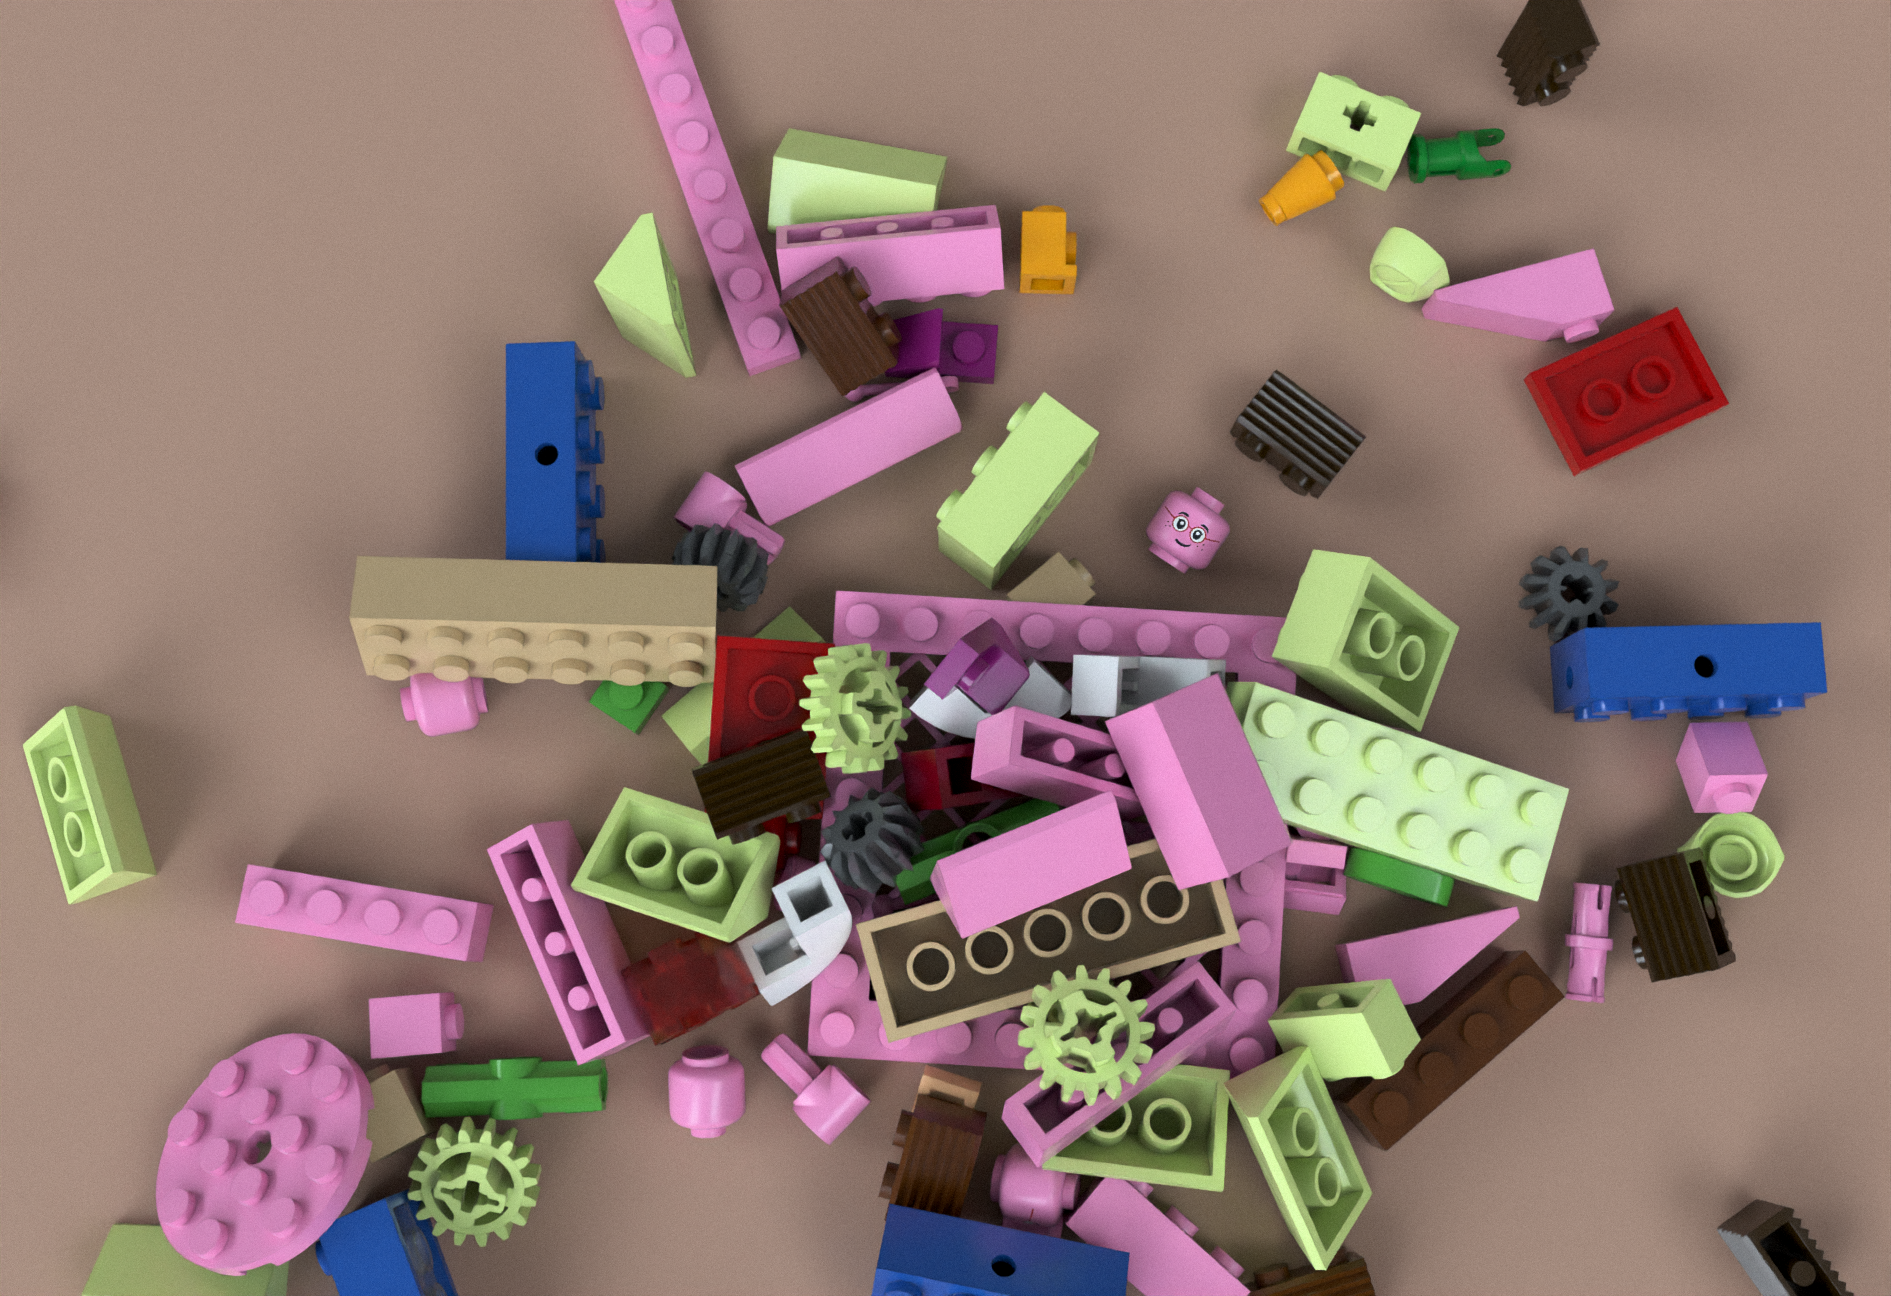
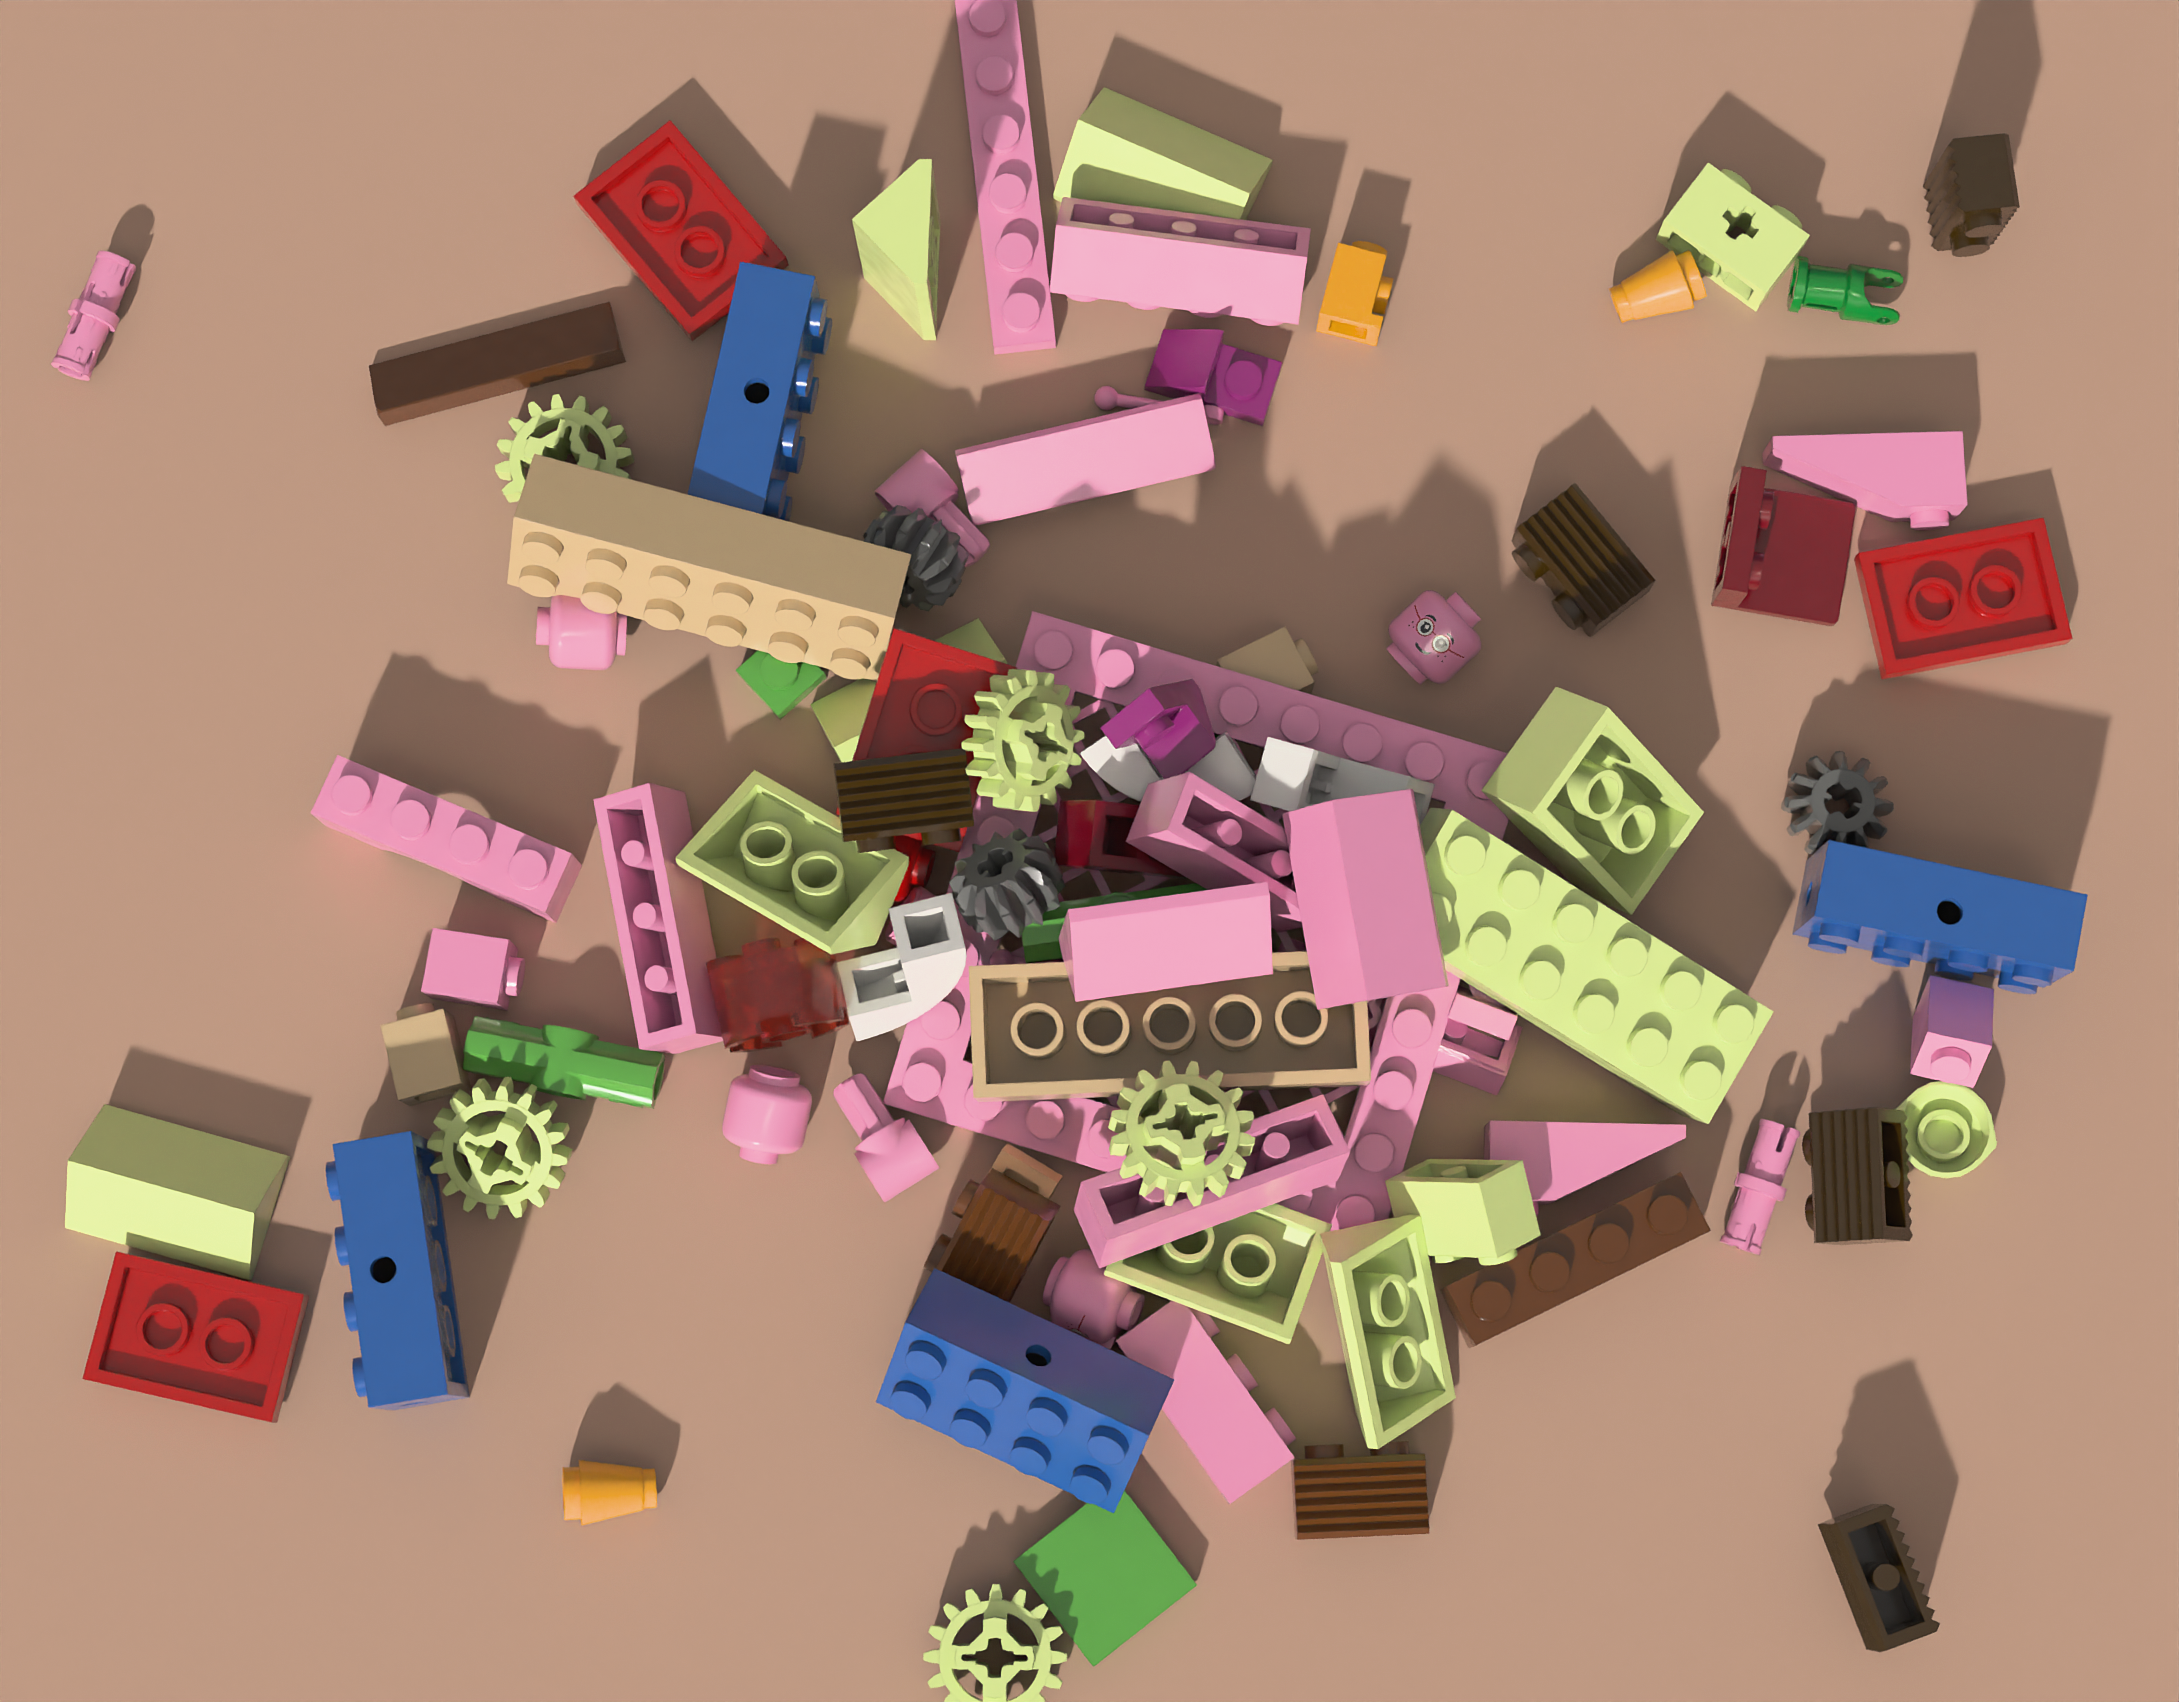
camera: 15 degrees right, 0 degrees up
(88, 804) = (171, 653): yellowish green slope -> none
(244, 1213) = (225, 1064): bright pink plate -> none
(318, 484) = (496, 364): none -> reddish brown slope
(395, 532) = (569, 438): none -> yellowish green gear
(448, 329) = (677, 228): none -> red plate
(841, 325) = (1108, 323): reddish brown brick -> none
(1015, 489) = (1254, 548): yellowish green brick -> none
(1399, 877) = (1569, 1066): bright green beam -> none
(1407, 266) = (1751, 403): yellowish green hat -> none
(1462, 387) = (1782, 552): none -> dark red bracket

